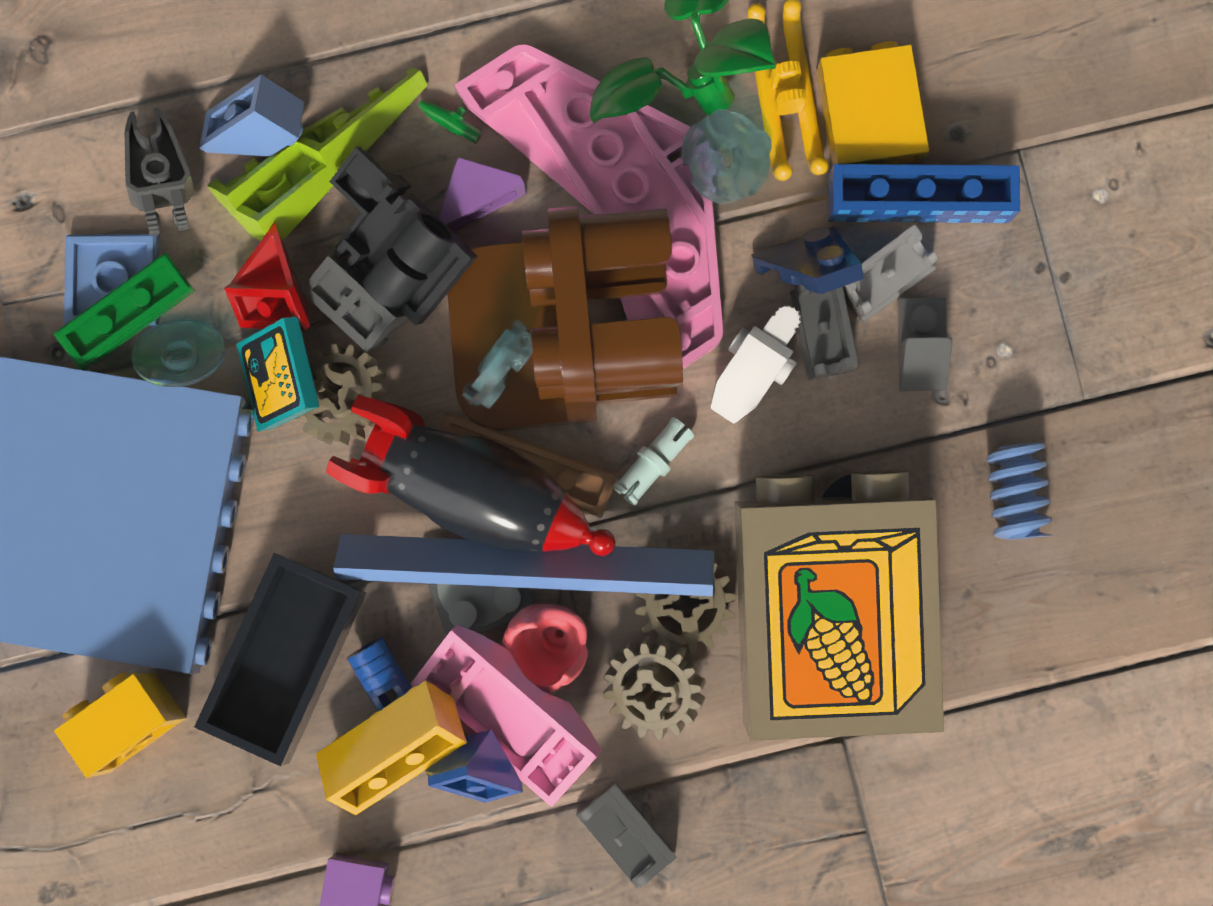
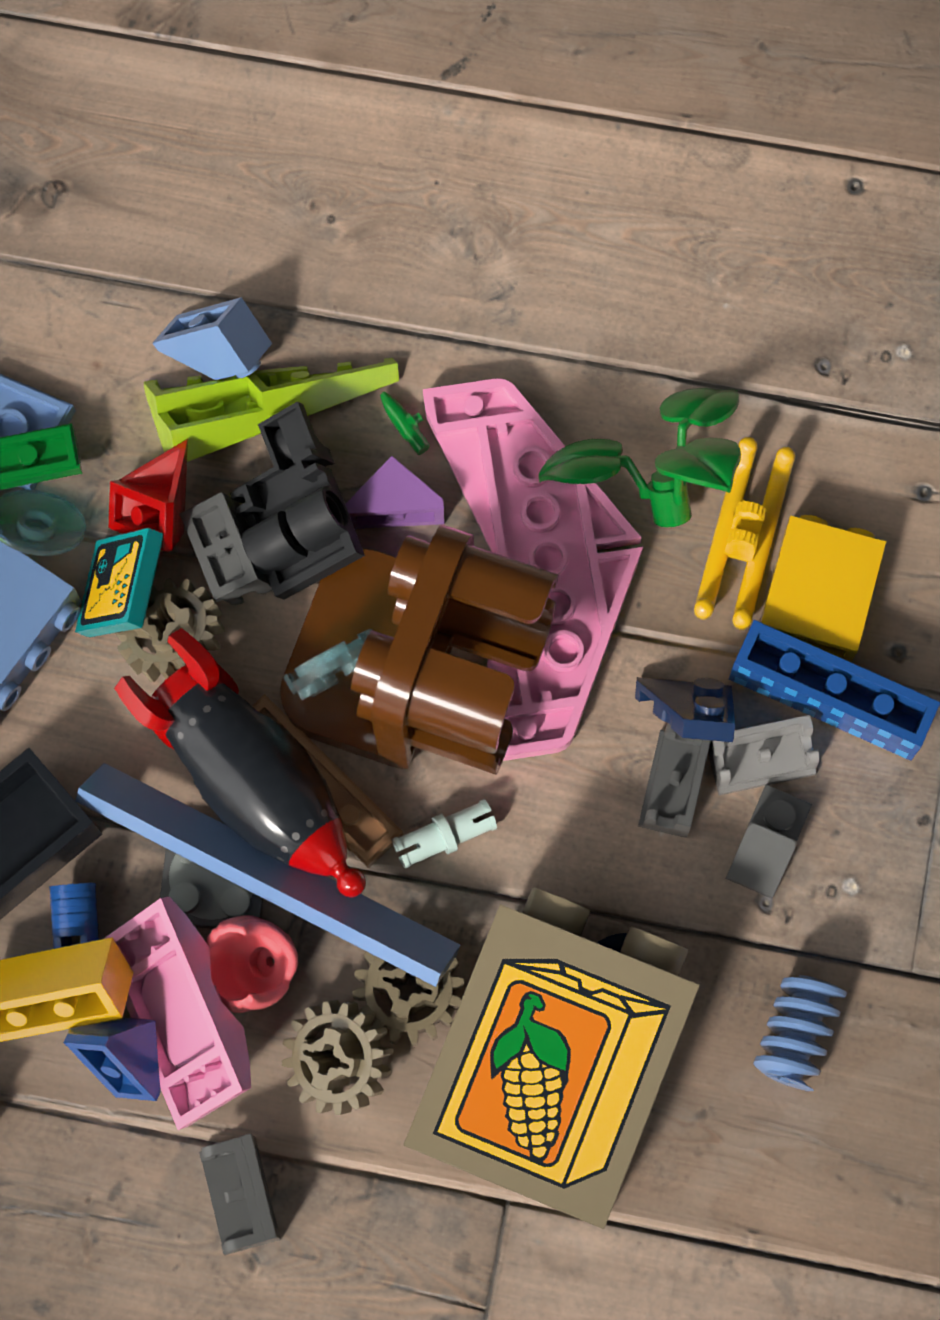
camera: 25 degrees right, 10 degrees down
(156, 177) = (100, 349): dark grey hinge -> none
(749, 152) = (679, 563): clear light blue plate -> none
(756, 364) = (589, 784): white hinge -> none

